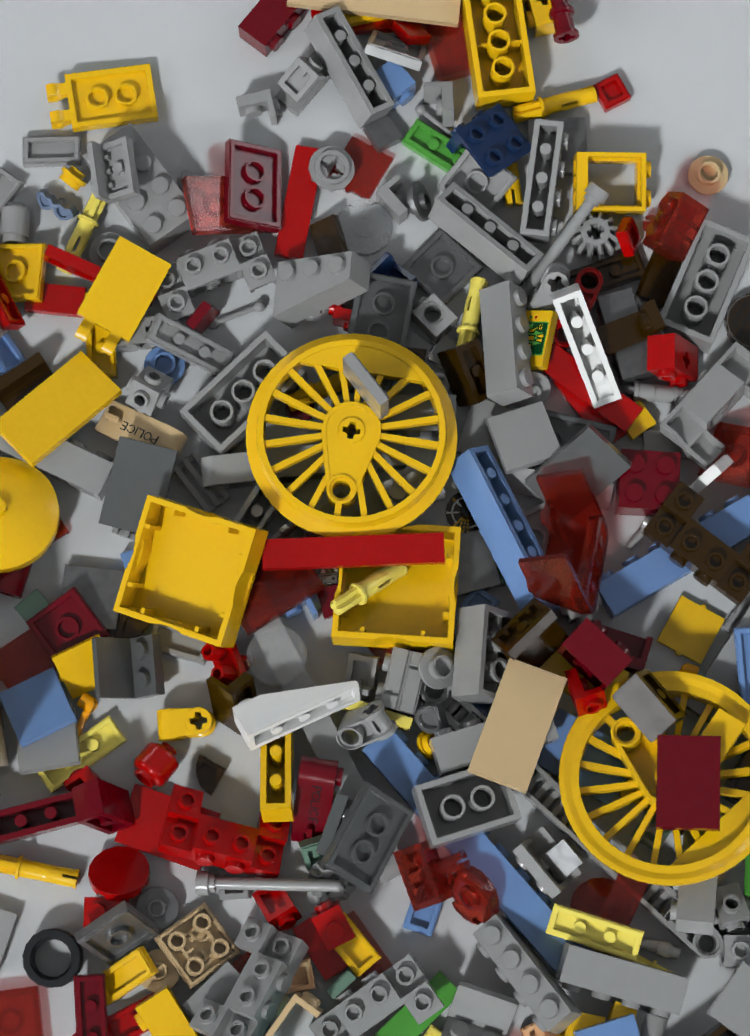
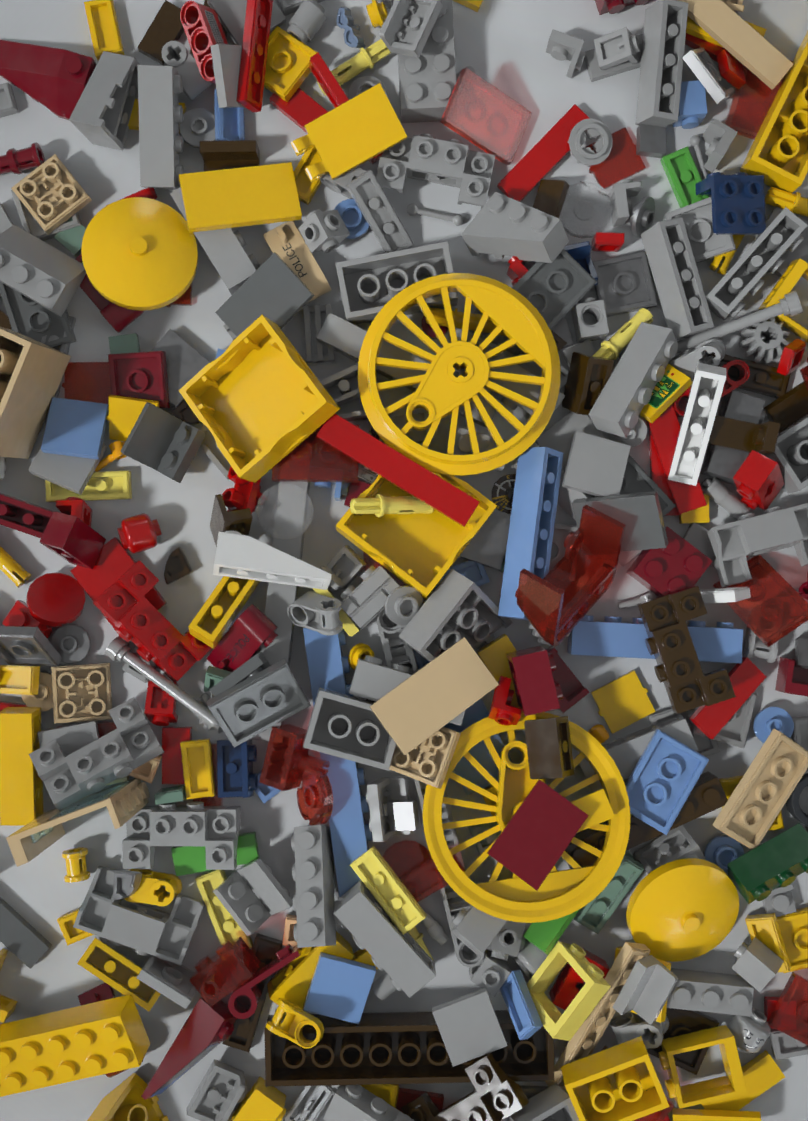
camera: 35 degrees right, 10 degrees up
(178, 723) = (179, 514): yellow piece -> none
(202, 317) = (405, 198): dark red tile -> none
(252, 186) = (517, 114): tile -> none
(332, 924) = (191, 747): red bracket -> none
(366, 385) = (495, 340): light grey tile -> none
(384, 920) = (236, 769): none -> dark blue bracket
(403, 241) = (607, 242): none -> red tile
(431, 717) = (374, 640): flat silver tile -> none
(531, 635) = (493, 630): dark brown bracket -> none
(550, 786) = (429, 759): none -> tan tile

